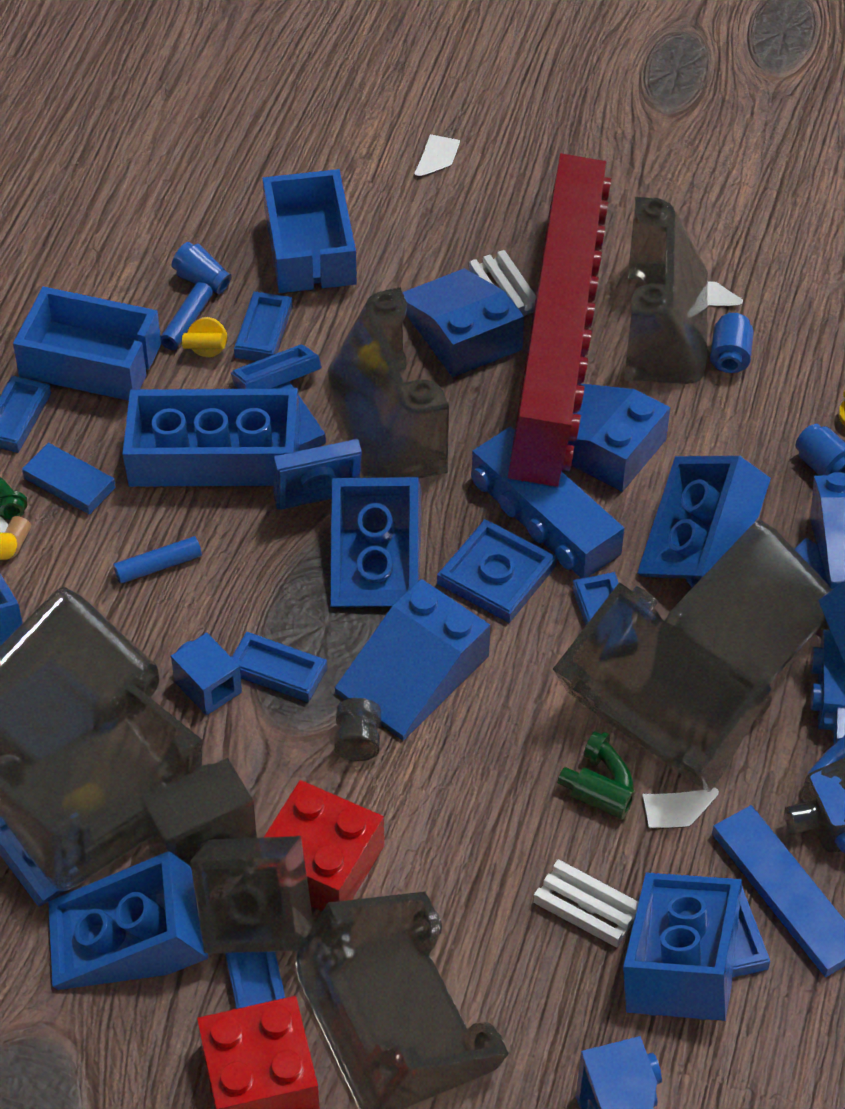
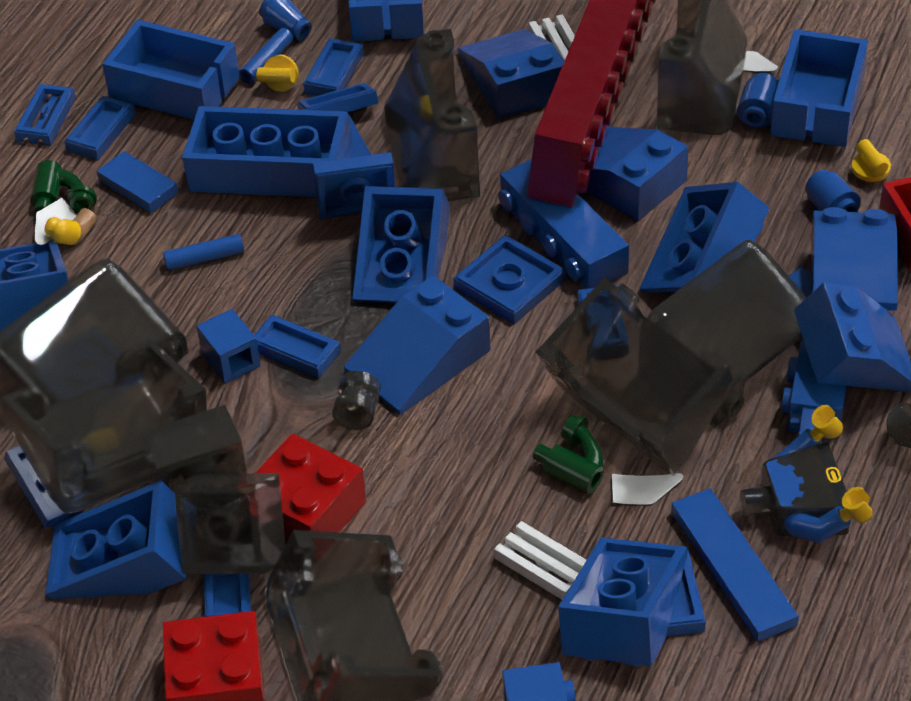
camera: 10 degrees right, 5 degrees down
(796, 326) = (819, 87): none -> blue piece

